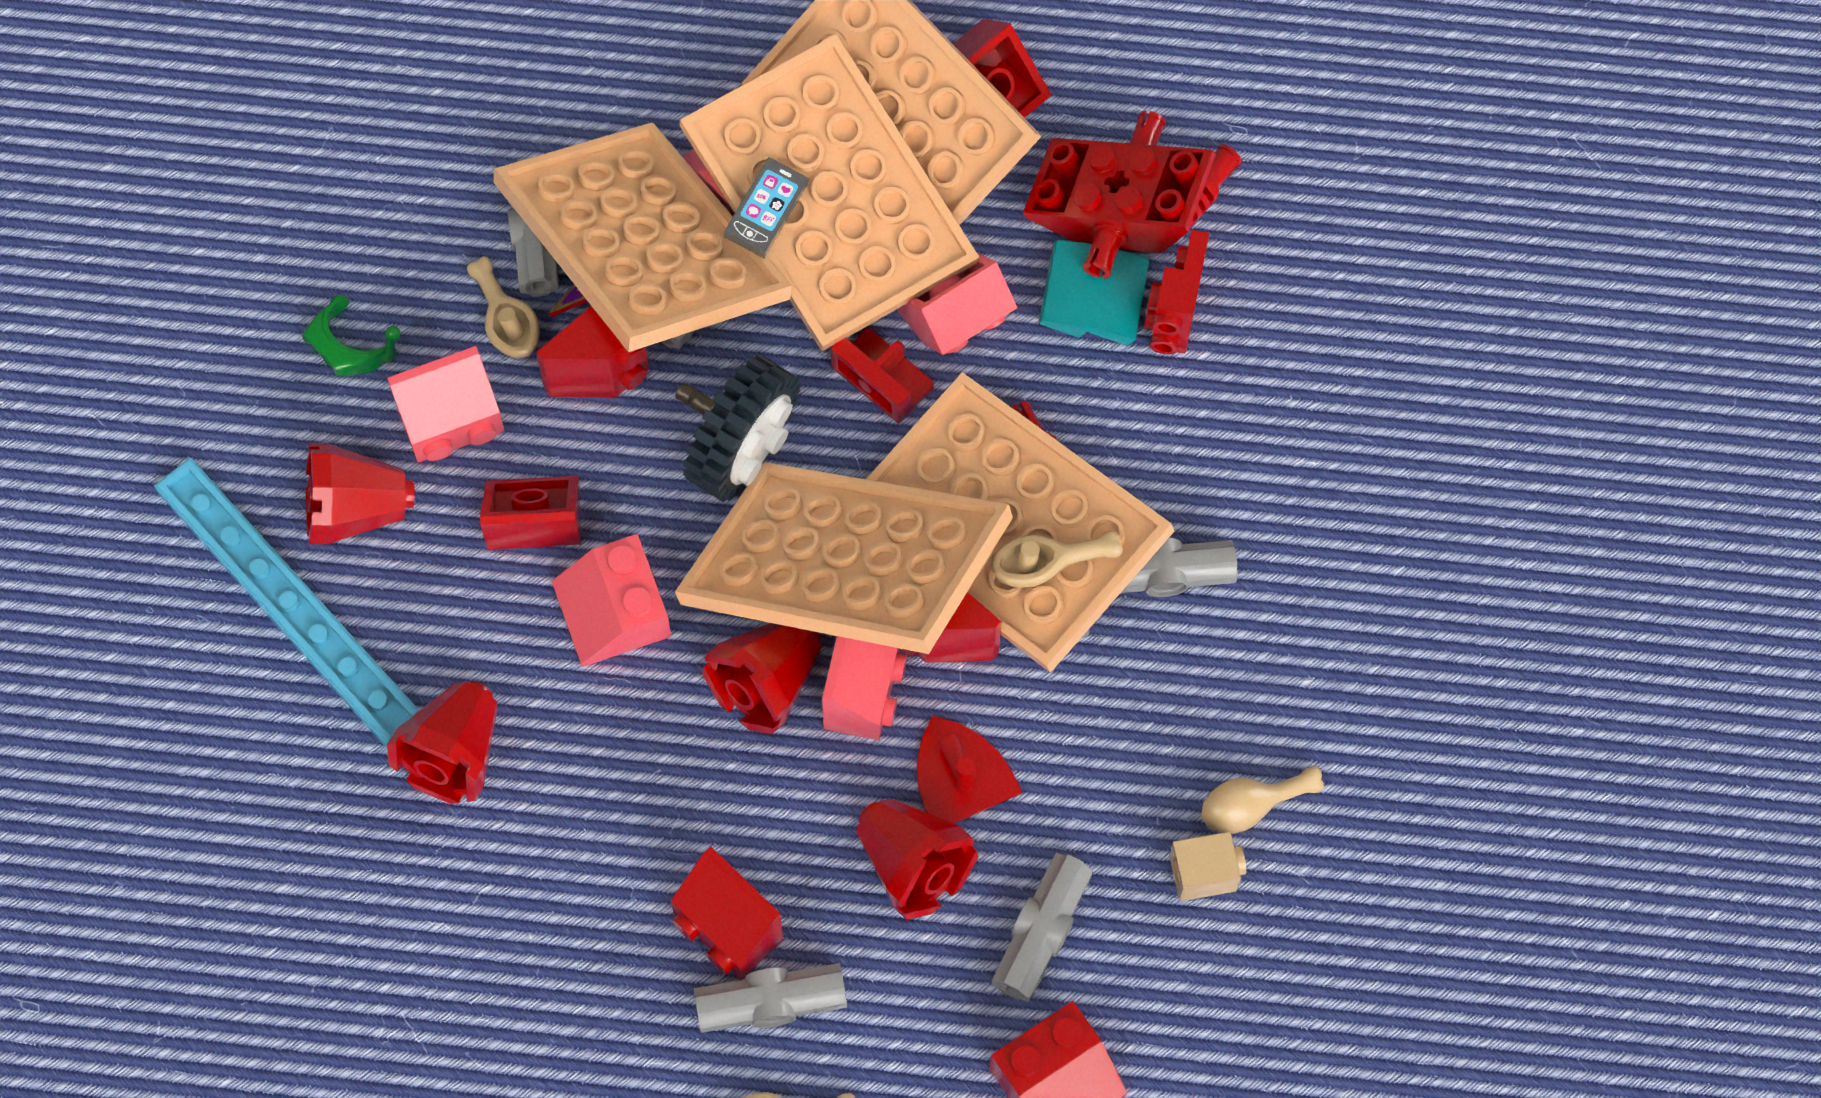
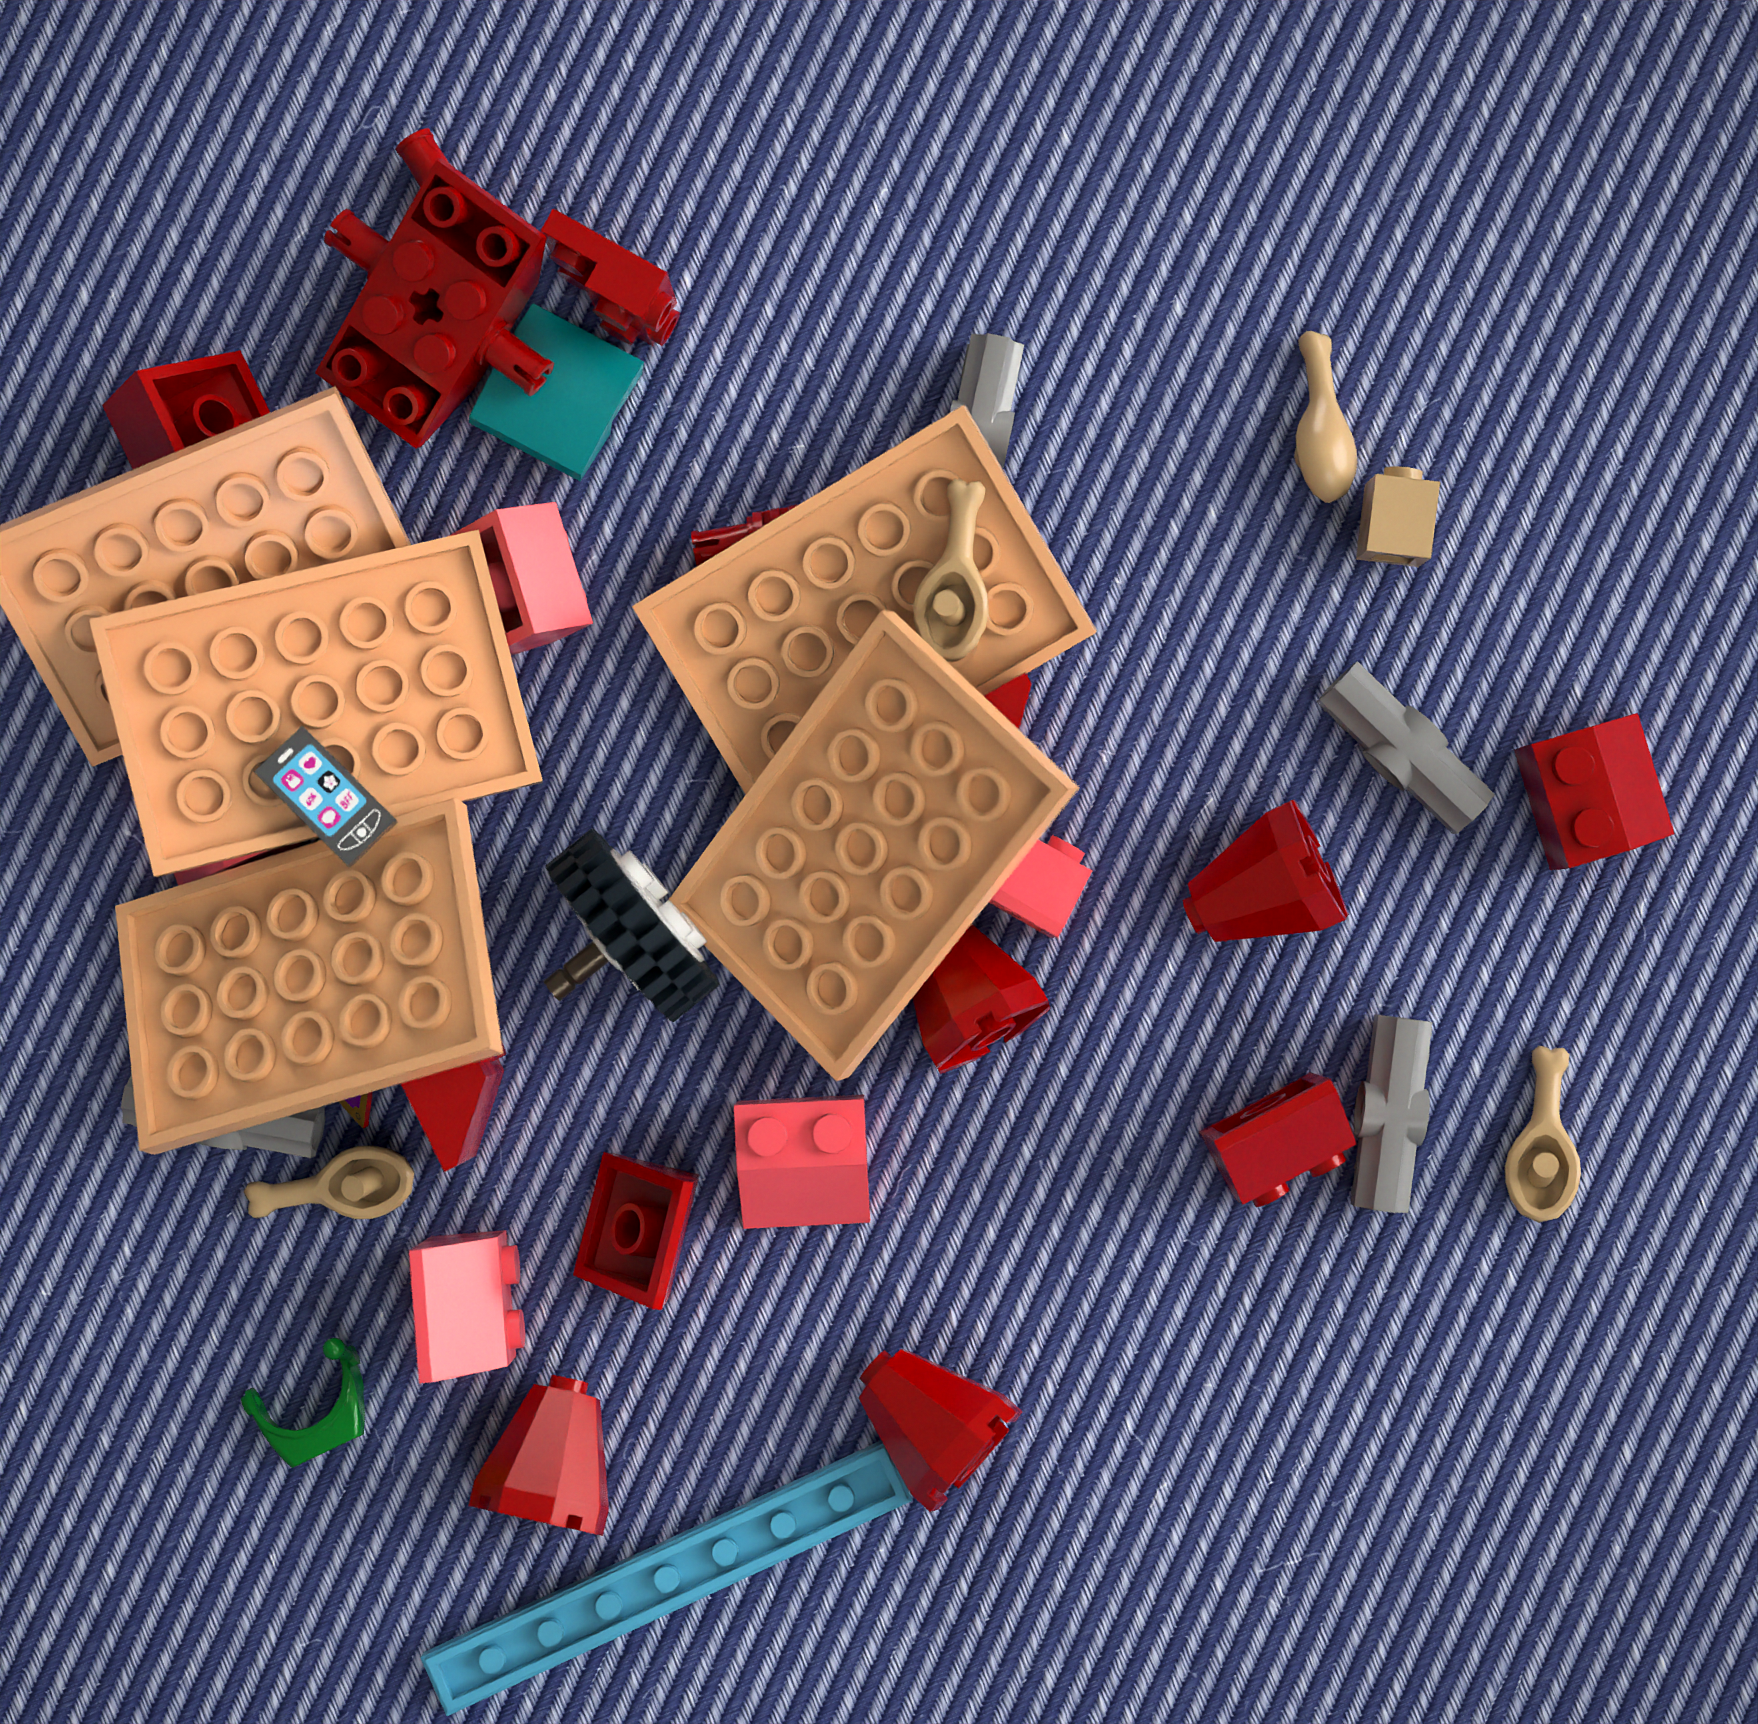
camera: 65 degrees left, 20 degrees up
(881, 373) = (586, 709): red panel -> none
(961, 772) = (1164, 784): red shield -> none

